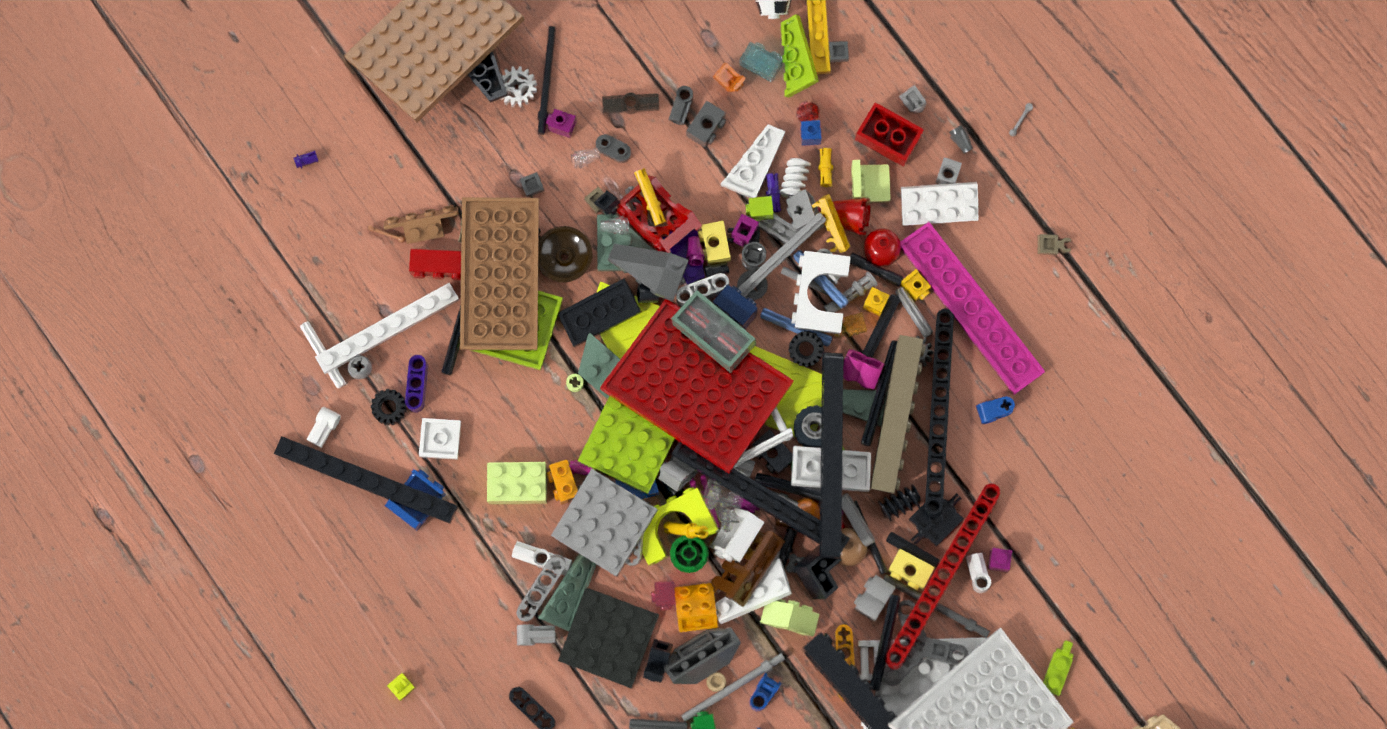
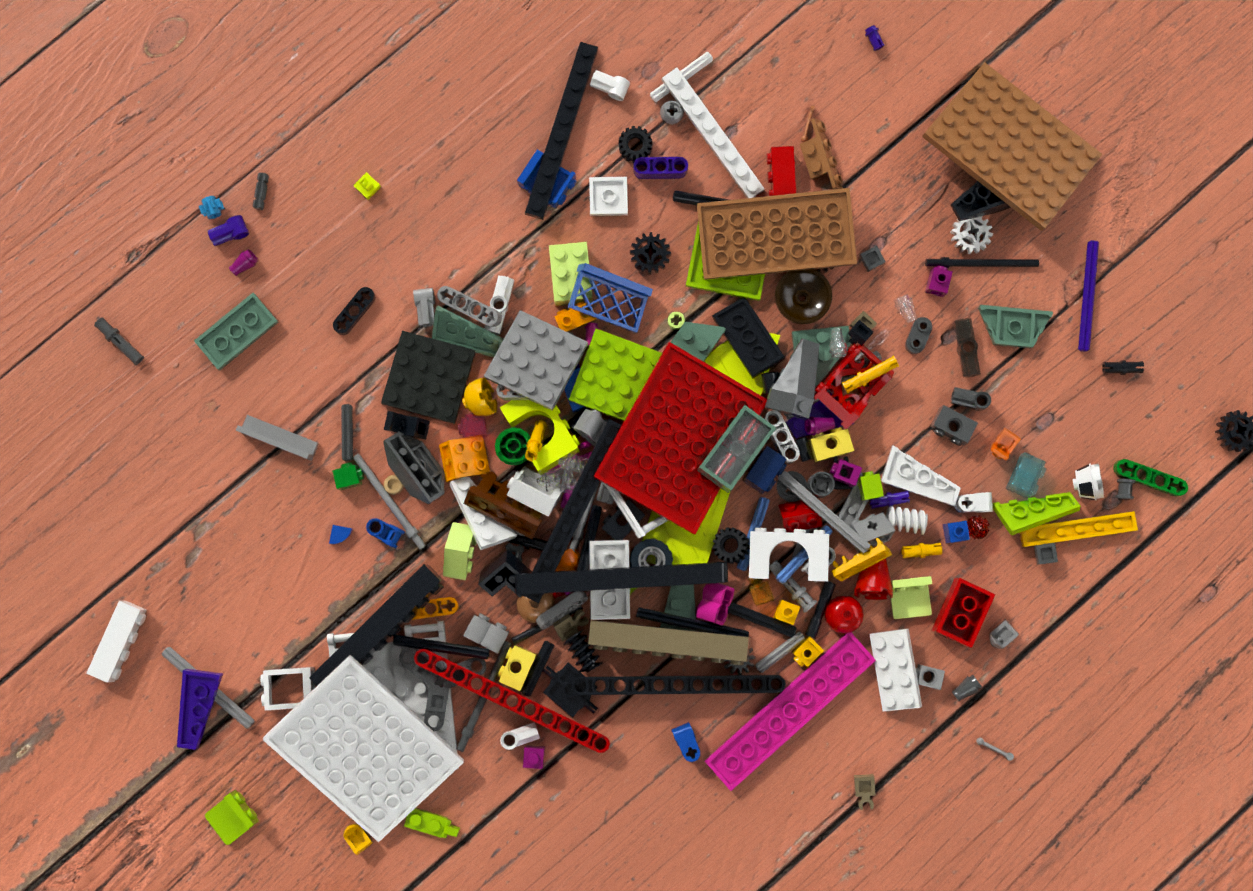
camera: 80 degrees right, 5 degrees up
(512, 403) = (658, 253): none -> black gear
(532, 436) = (610, 281): none -> blue fence
(612, 57) = (1014, 325): none -> sand green wing
(636, 585) = (479, 398): none -> yellow cylinder
(783, 111) = (975, 503): none -> white piece
(783, 281) = (798, 516): none -> red bracket
(872, 516) = (568, 625): none -> dark tan plate

